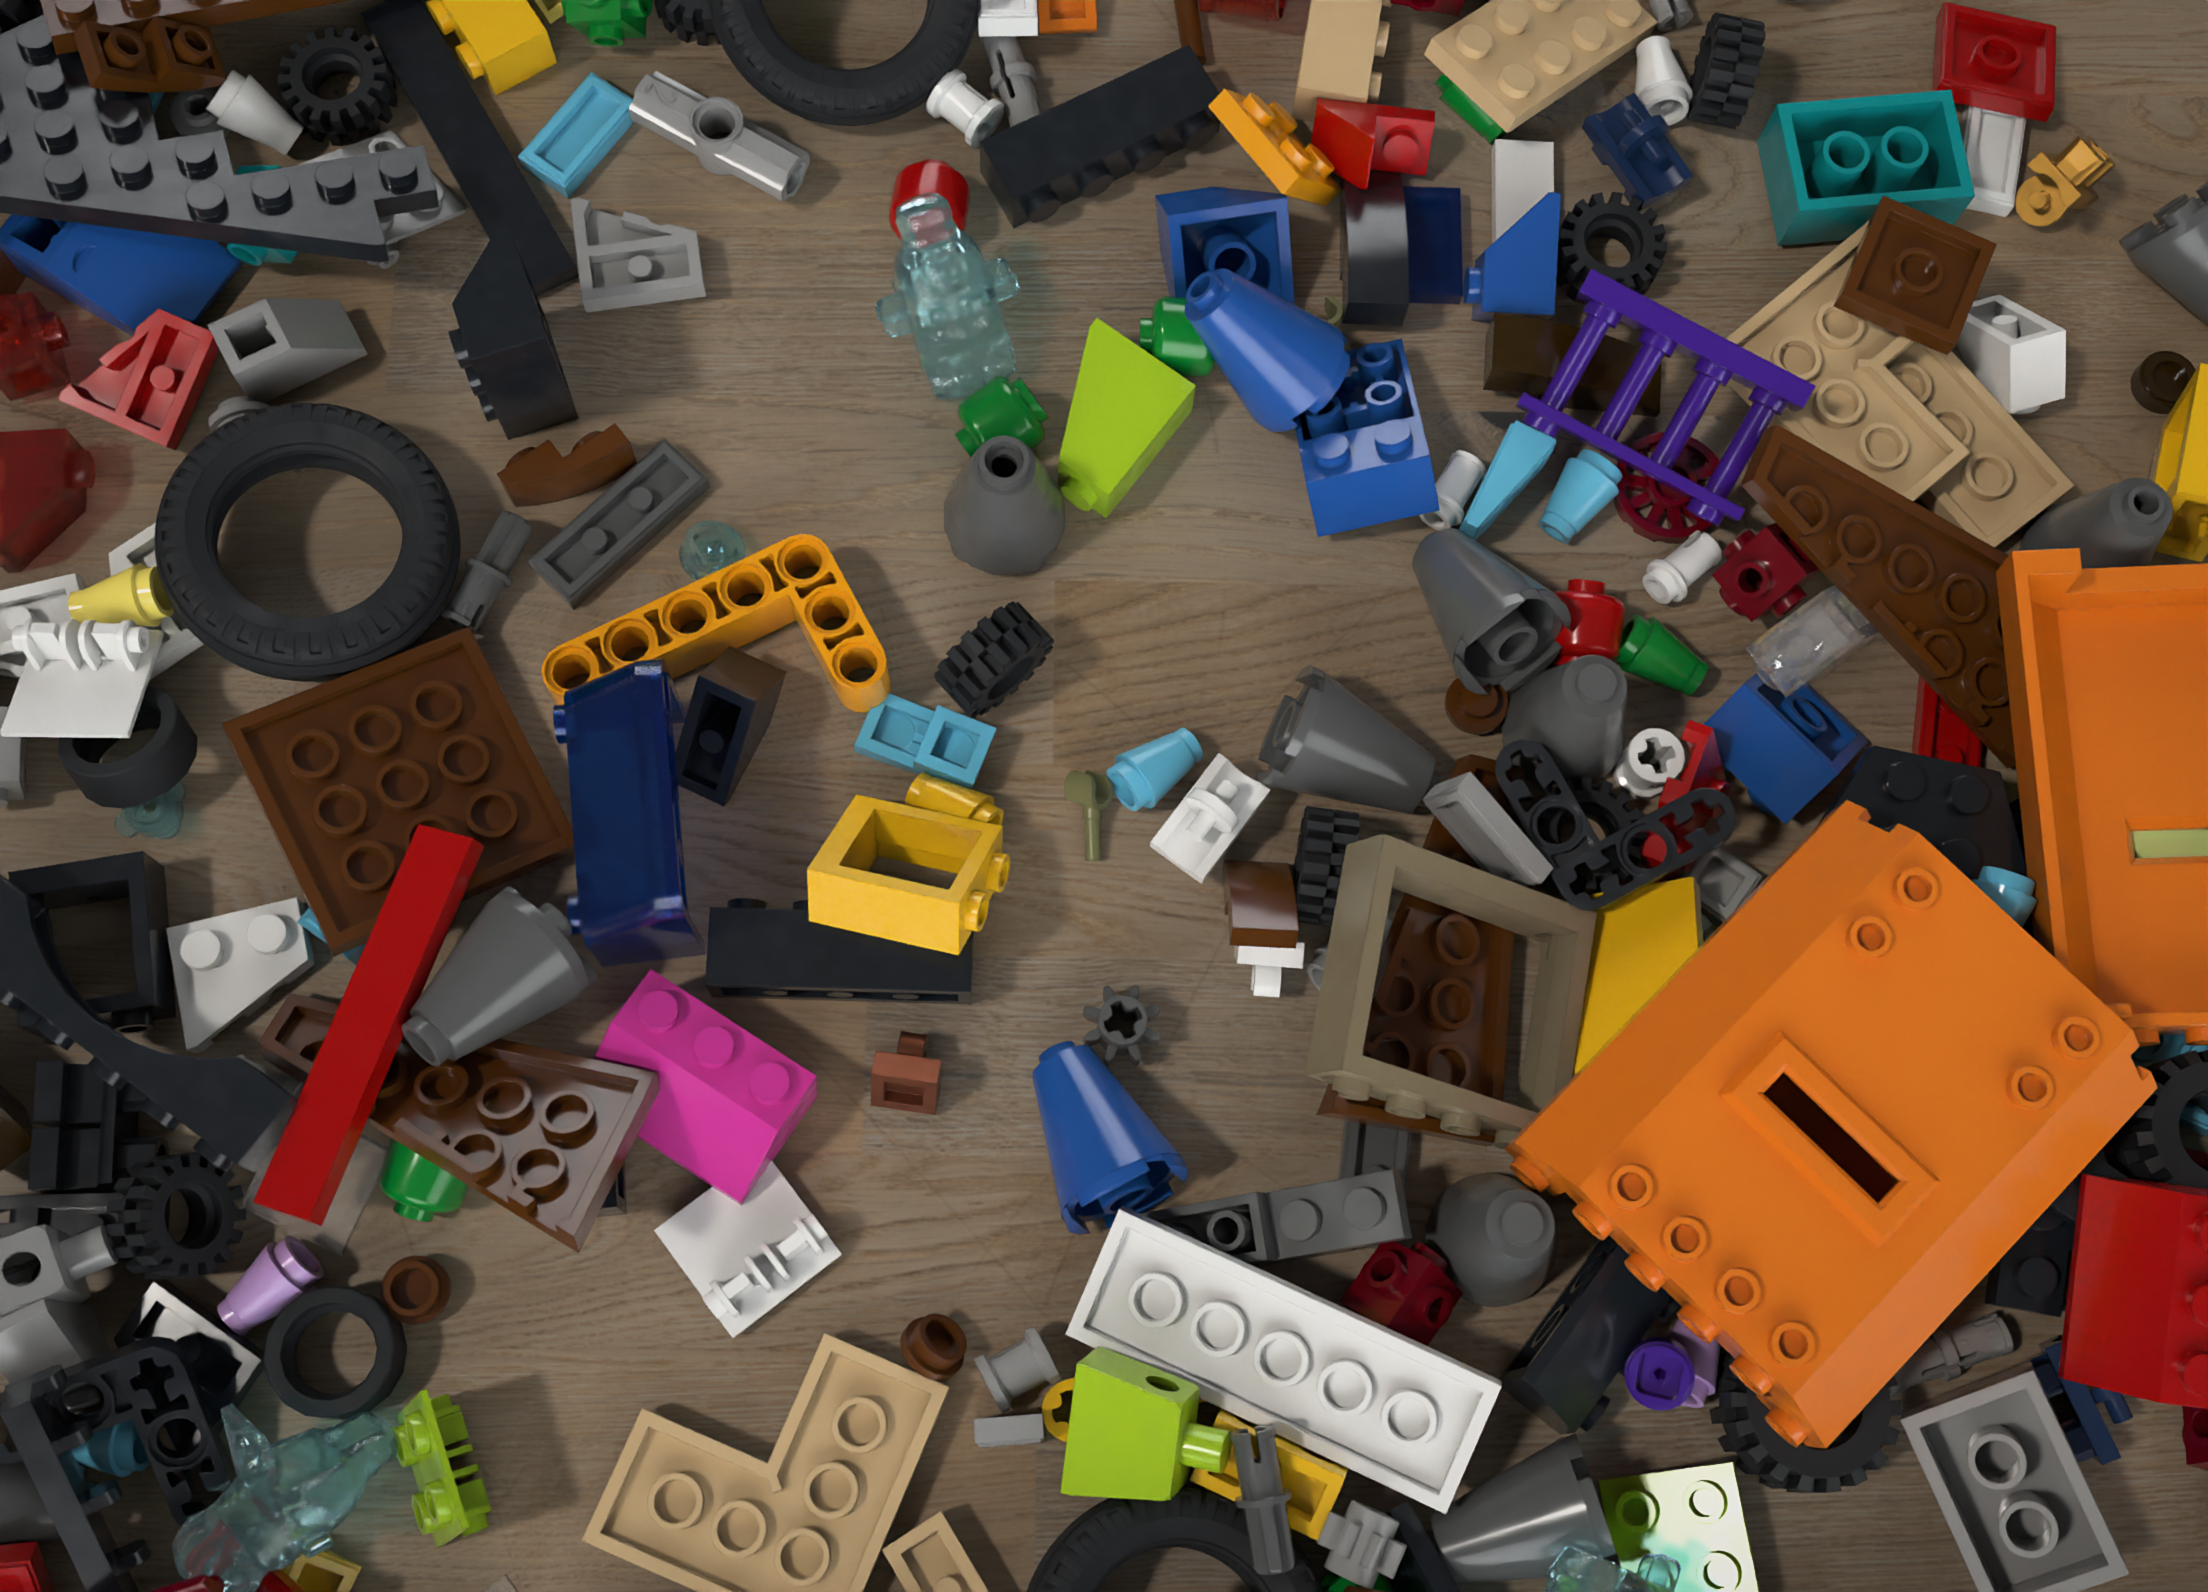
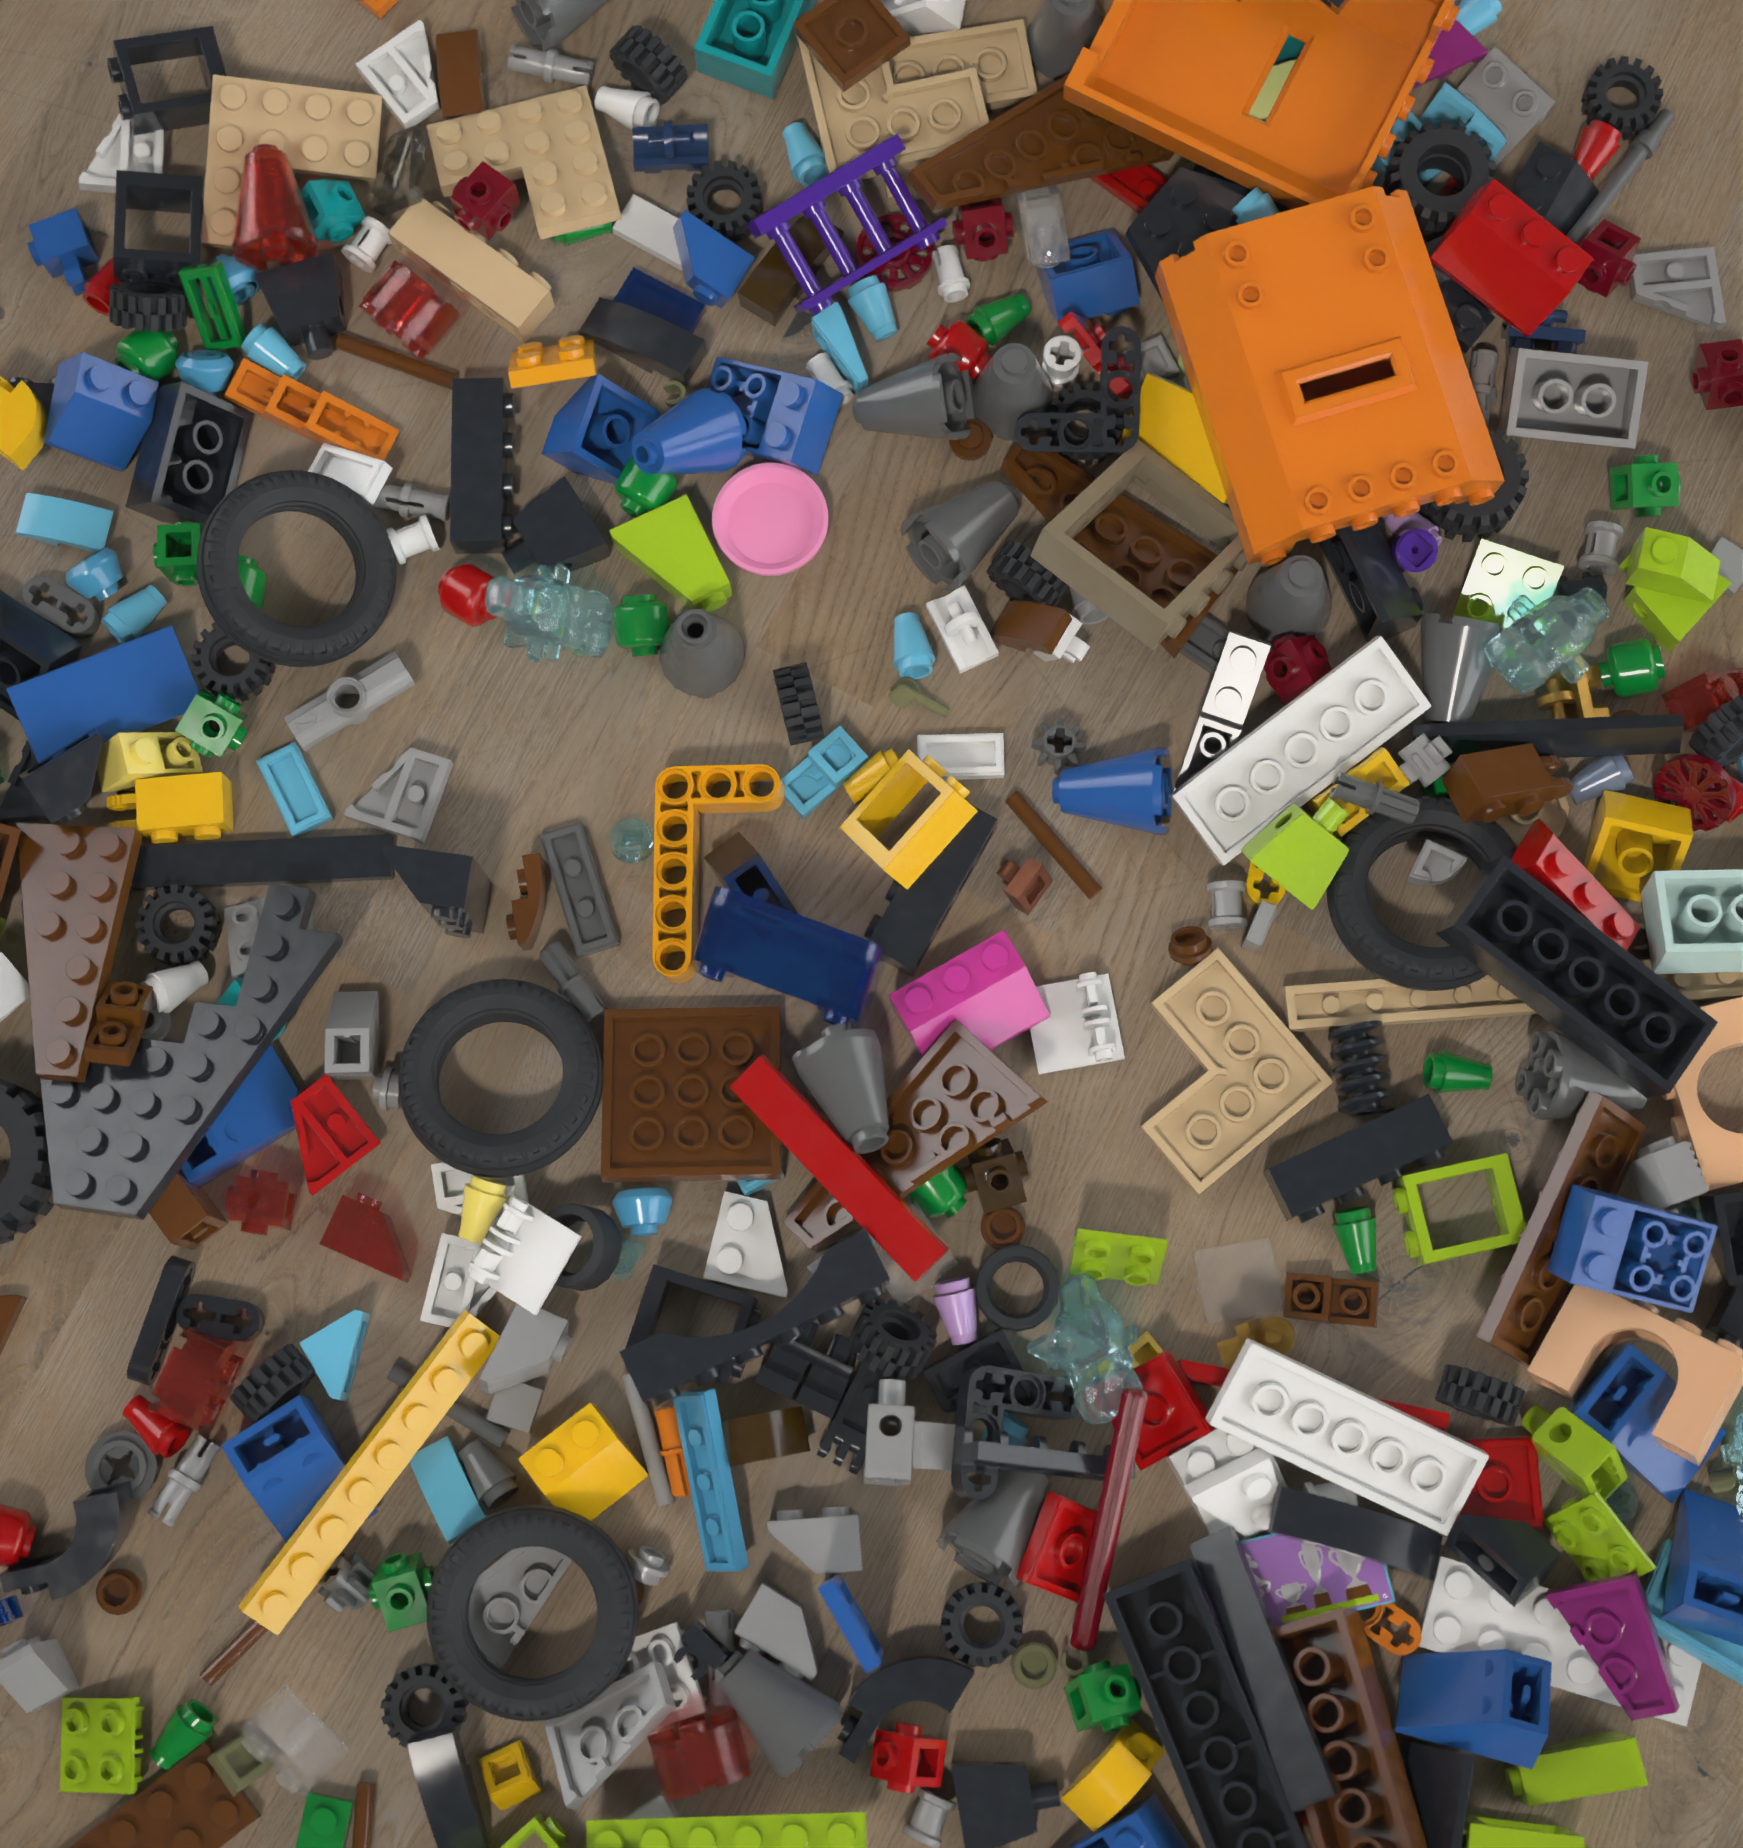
camera: 50 degrees left, 5 degrees up
(221, 805) = (643, 1209): none -> dark azure cone
(474, 1244) = (996, 1175): none -> dark brown brick
(984, 1091) = (1053, 845): none -> reddish brown bar
(1046, 910) = (965, 754): none -> white tile
(1064, 264) = (555, 532): none -> black torso
(1224, 506) = (770, 519): none -> bright pink piece
(1372, 137) = (572, 302): red slope -> none
(1486, 831) = (1060, 474): light grey tile -> none
(1731, 305) = (804, 155): none -> medium azure cone

